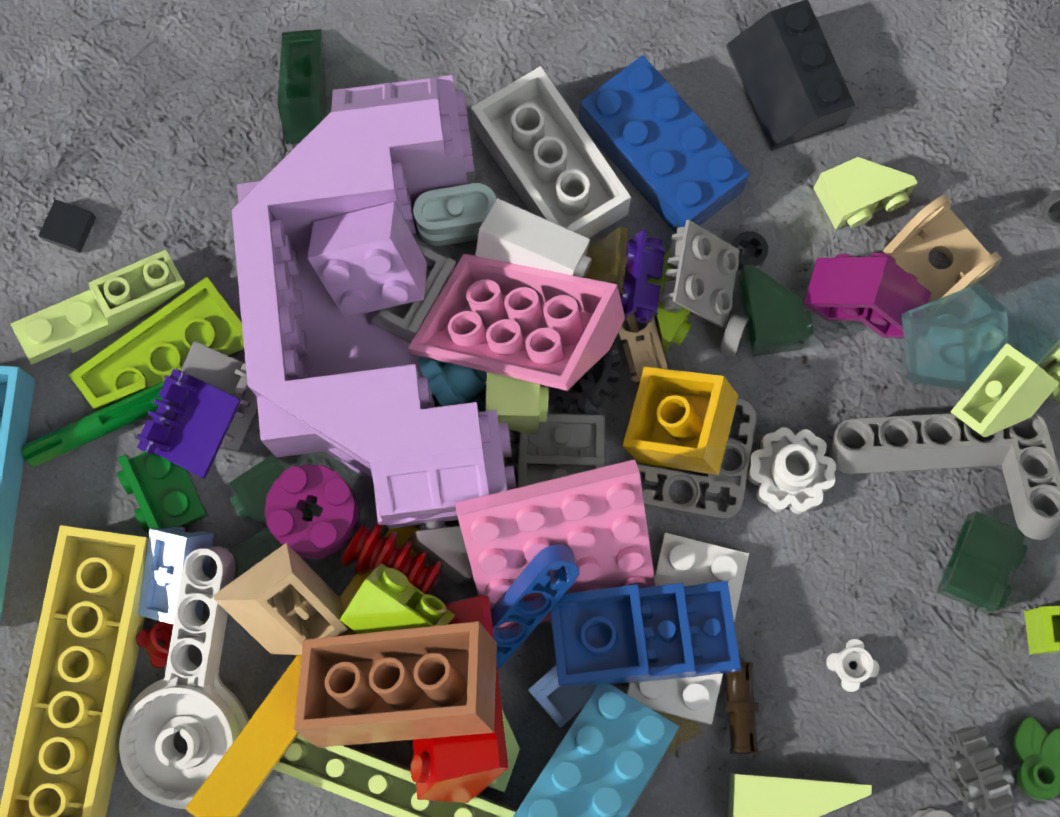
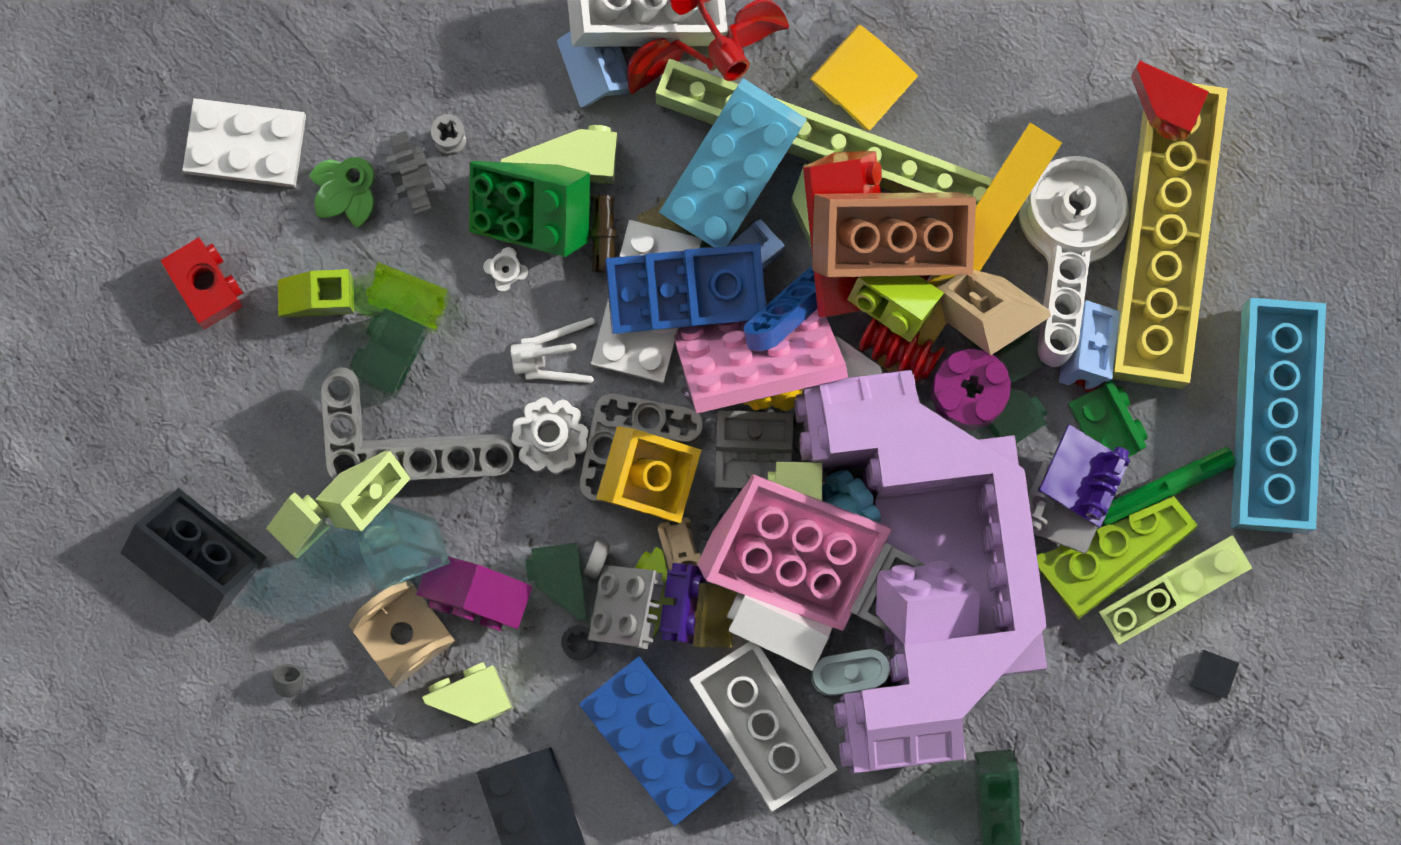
camera: 175 degrees right, 5 degrees up
(149, 641) = (1109, 291): red plate -> none
(819, 559) = (530, 355): none -> white plant
(830, 738) = (530, 205): none -> green slope
(965, 631) = (408, 296): none -> clear neon green hinge

